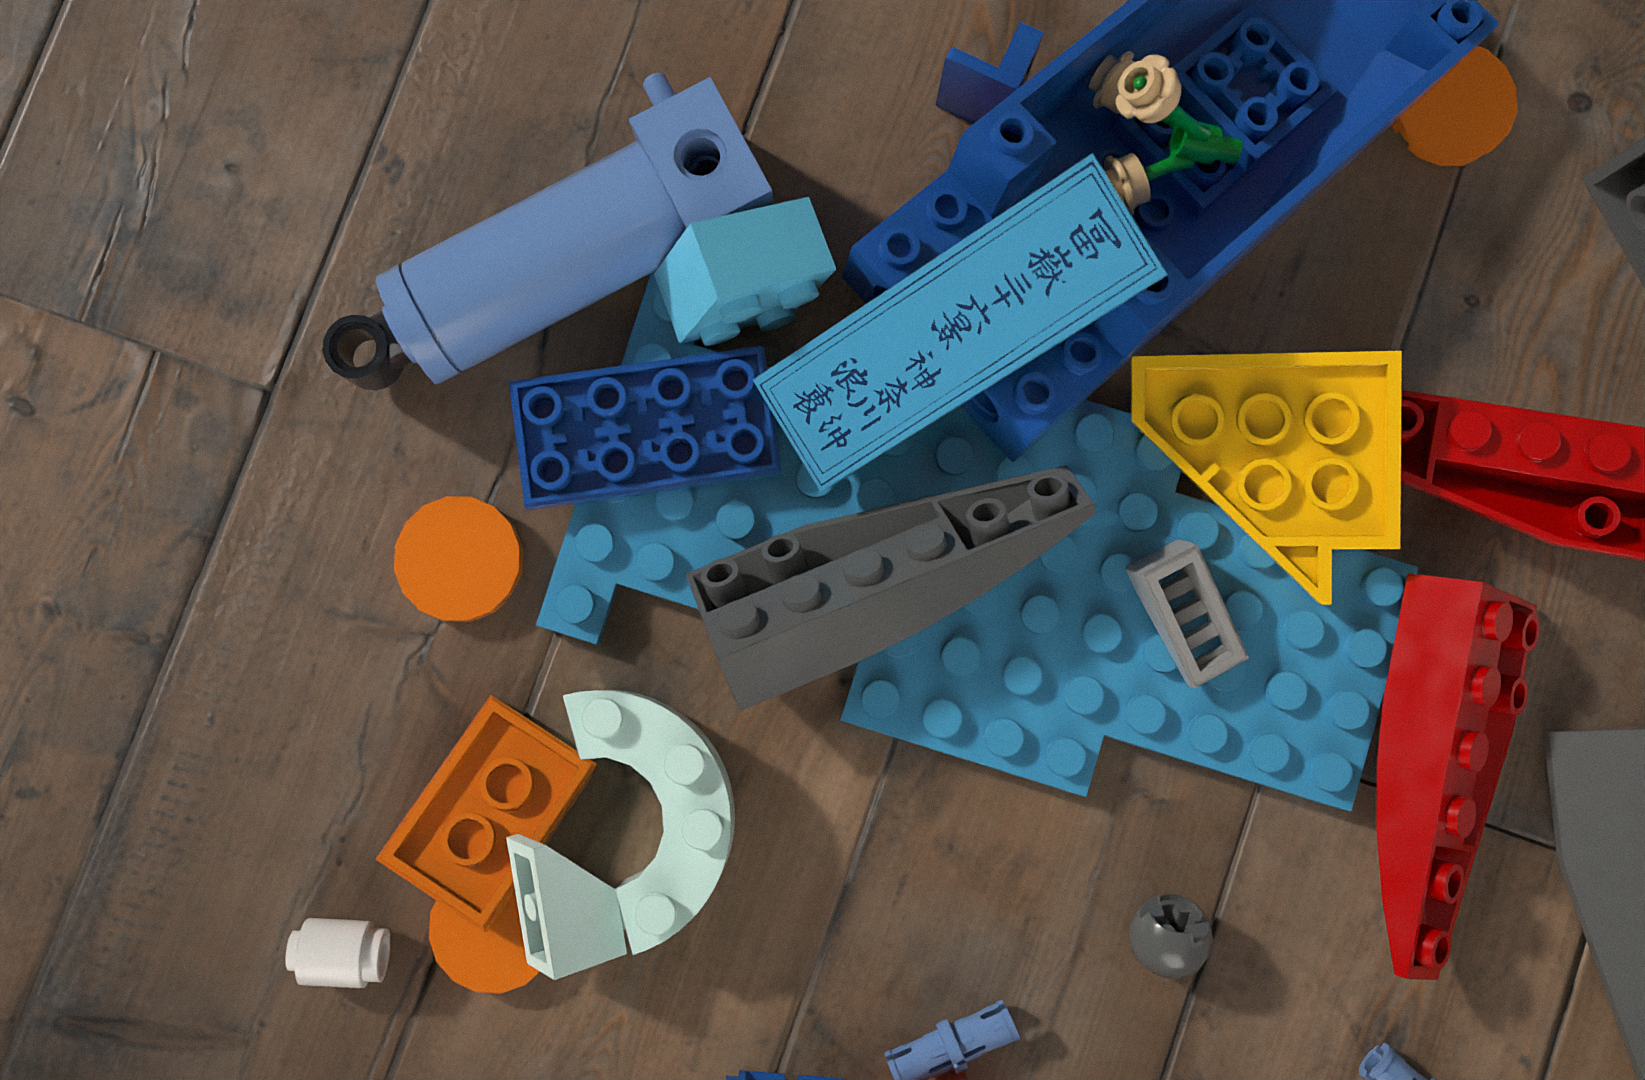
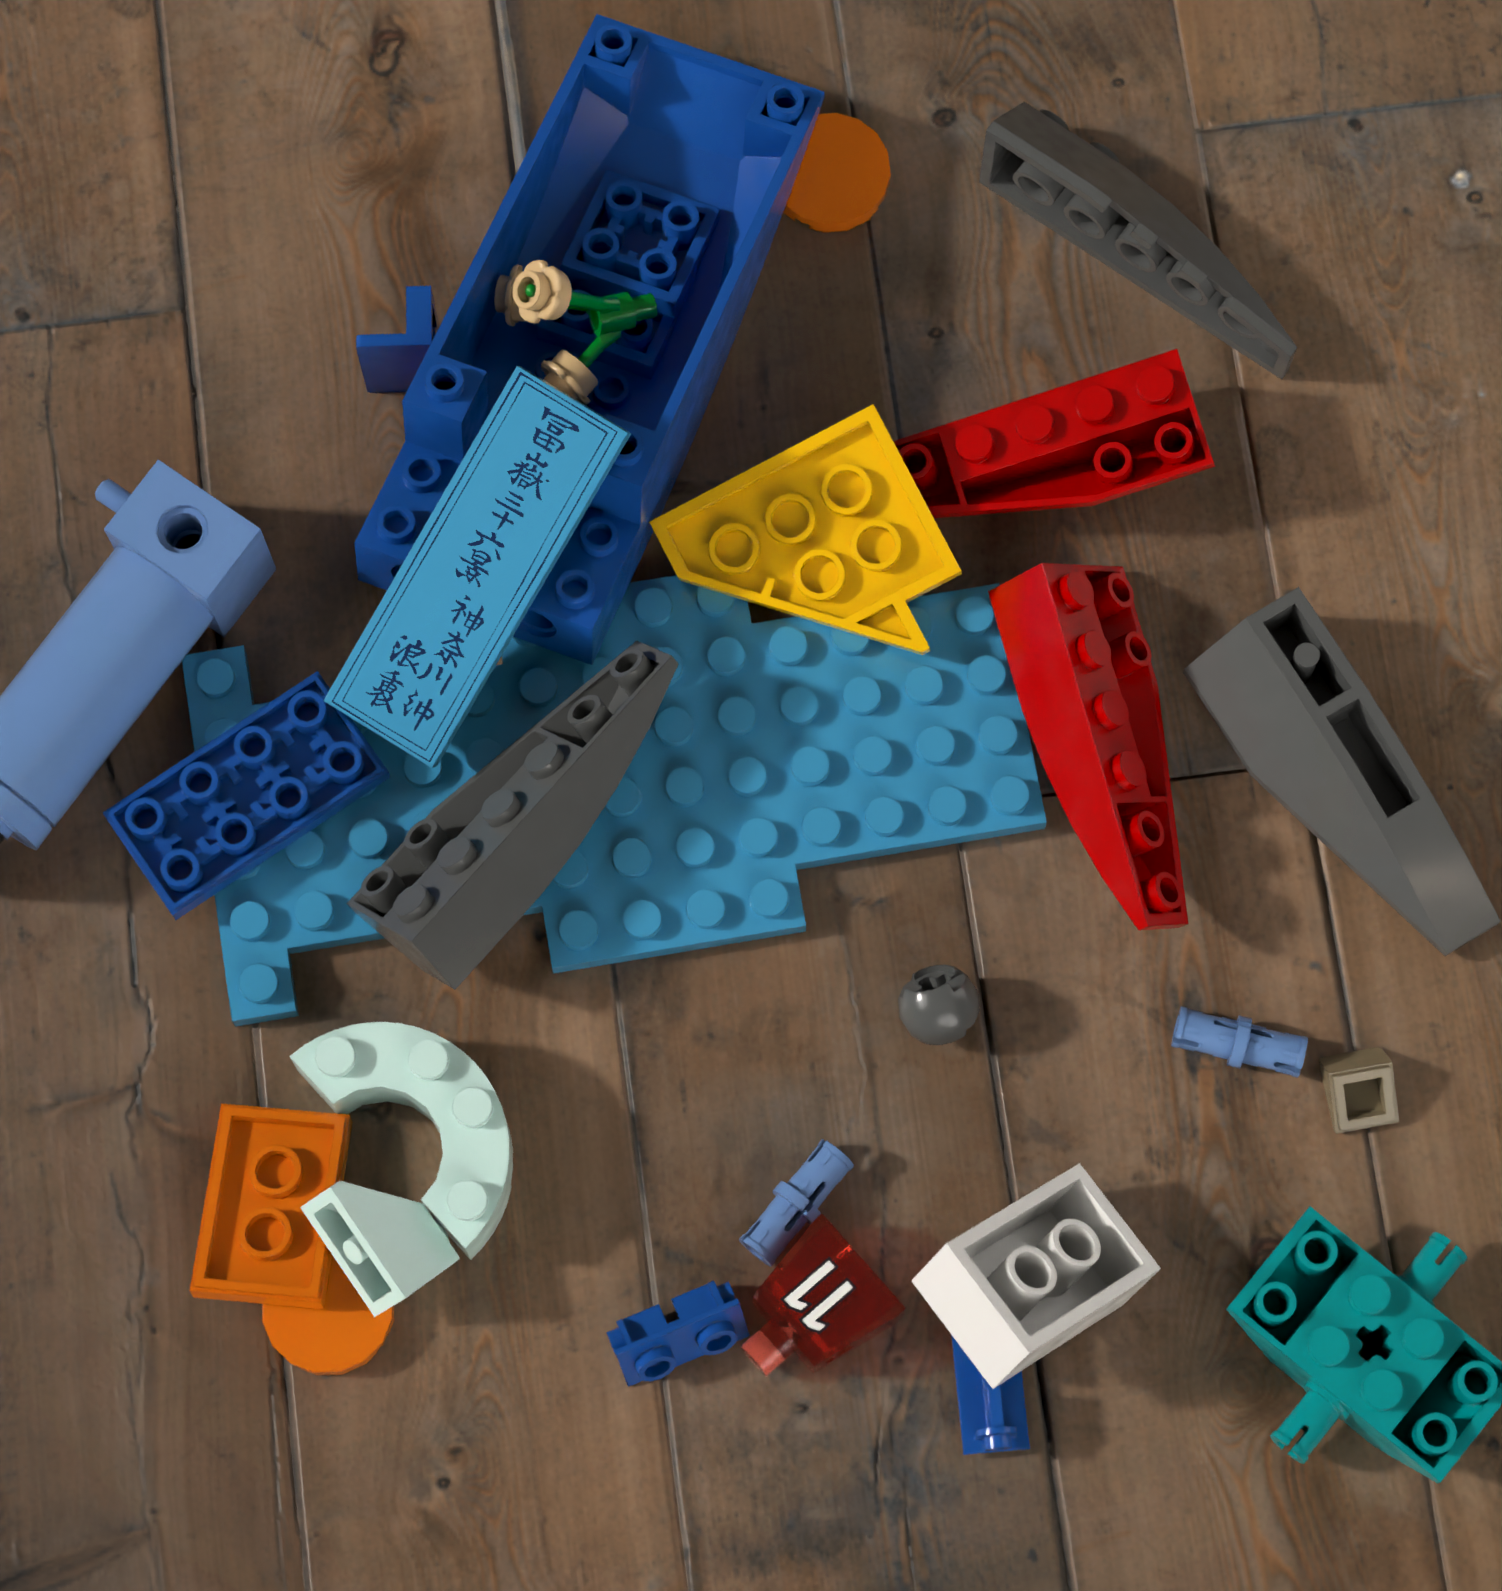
camera: 25 degrees left, 10 degrees down
(338, 953) = (195, 1398): white brick -> none
(458, 559) = (130, 1000): orange tile -> none
(744, 271) = (268, 614): medium azure brick -> none
(1195, 577) = (778, 721): light grey slope -> none

